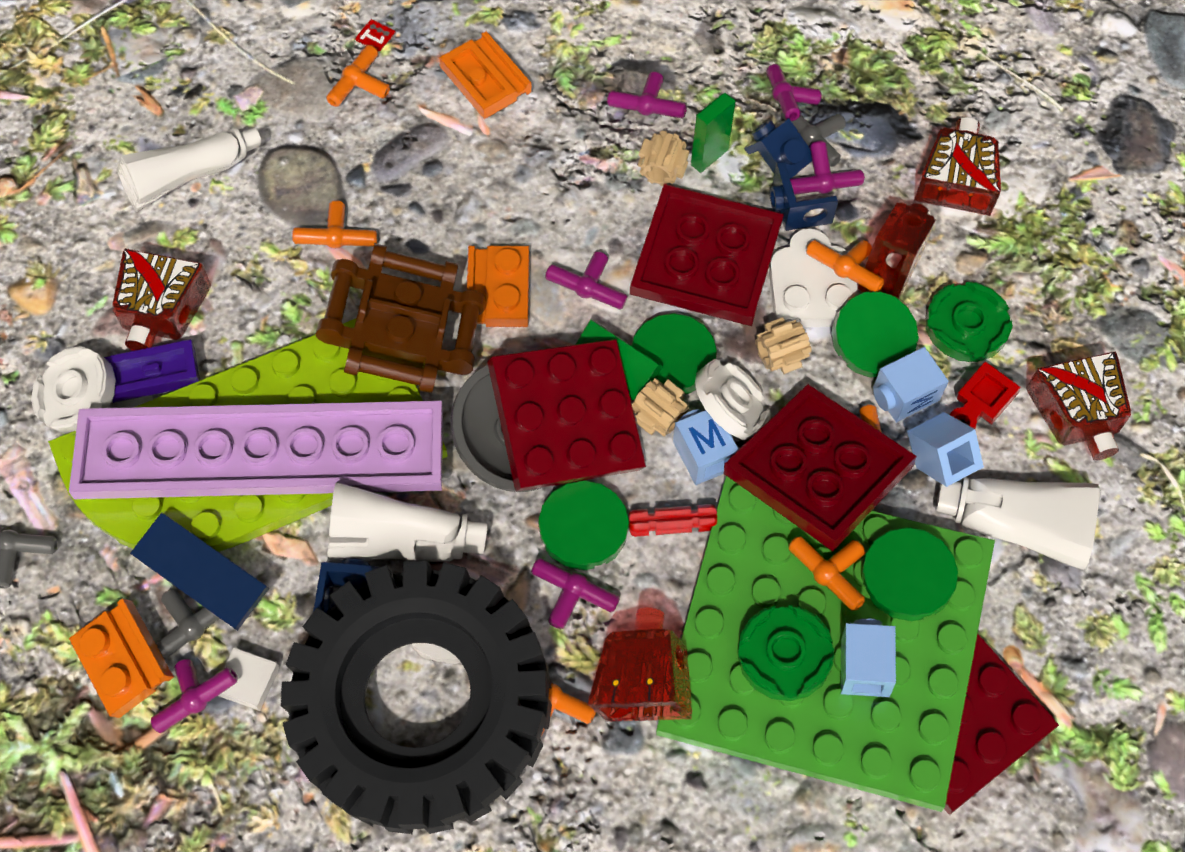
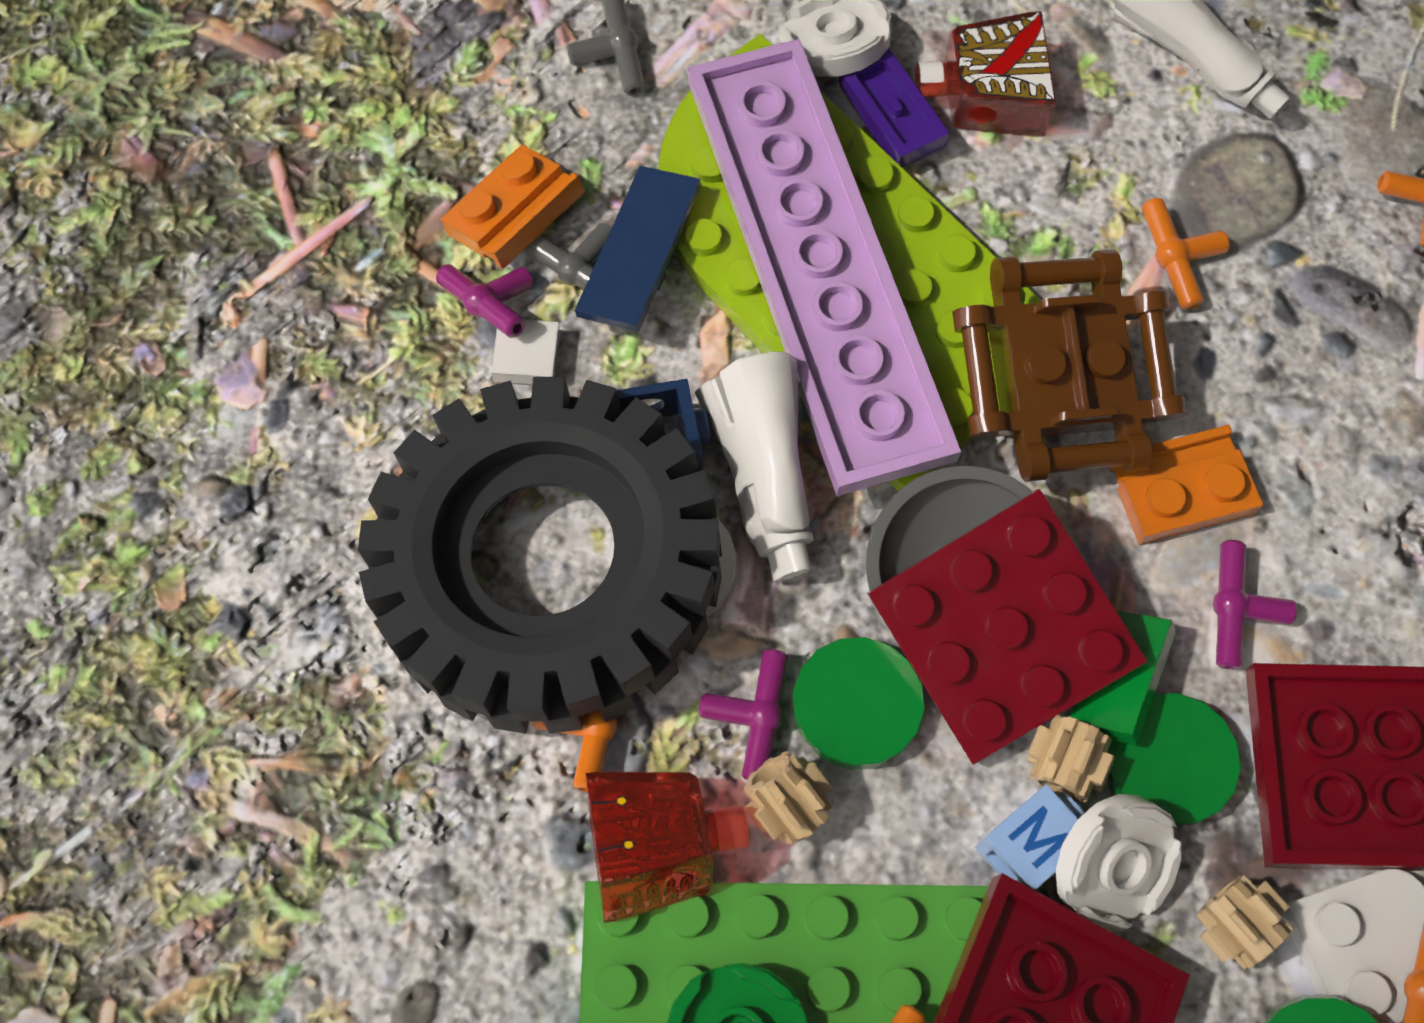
camera: 75 degrees right, 5 degrees up
(638, 581) = (788, 797): none -> tan gear
(672, 520) = (904, 825): axle -> none

